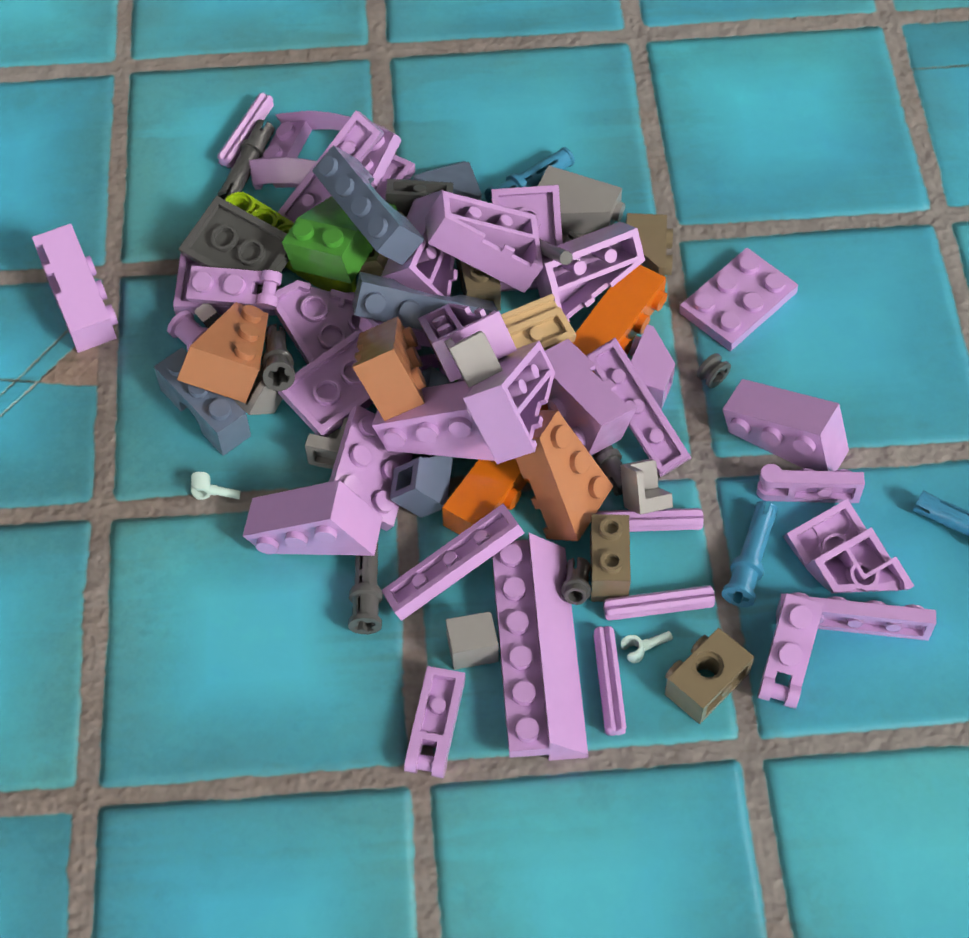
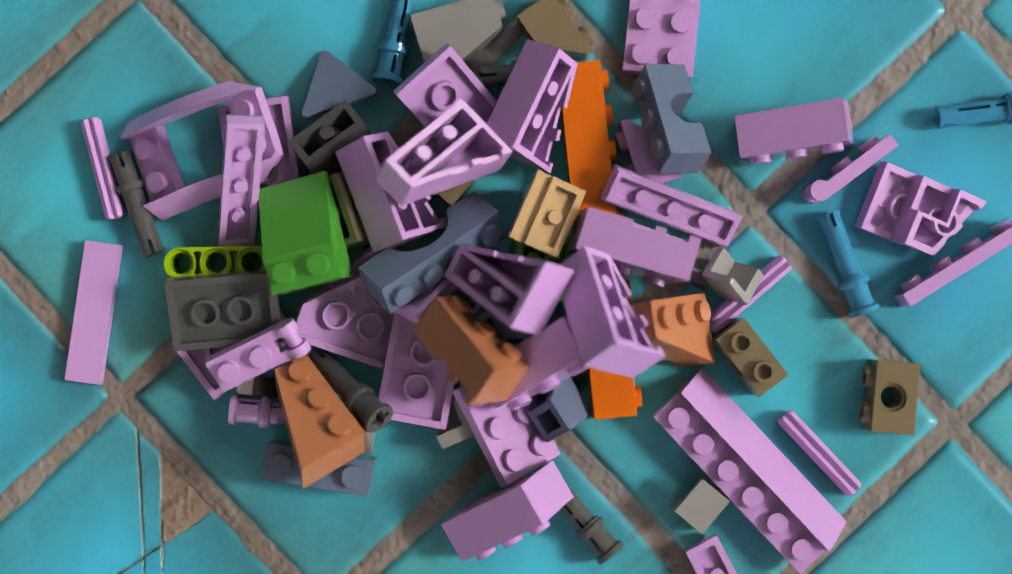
camera: 40 degrees left, 30 degrees up
(75, 289) = (121, 451): lavender wedge -> none
(148, 206) = (93, 312): none -> lavender tile
(202, 488) = (383, 535): light aqua hand -> none
(376, 219) = (354, 223): sand blue arch -> none
(452, 562) = (639, 457): lavender plate -> none
(474, 358) = (560, 318): light grey panel -> none
(555, 253) = (512, 131): dark grey bar -> none
(576, 587) = (738, 395): dark grey pin -> none
(643, 645) = (822, 403): light aqua hand -> none
(659, 602) = (809, 359): lavender axle -> none
(685, 342) = (674, 143): none -> sand blue arch
(713, 370) = (699, 113): dark grey bush -> none
(791, 649) = (938, 332): lavender plate -> none

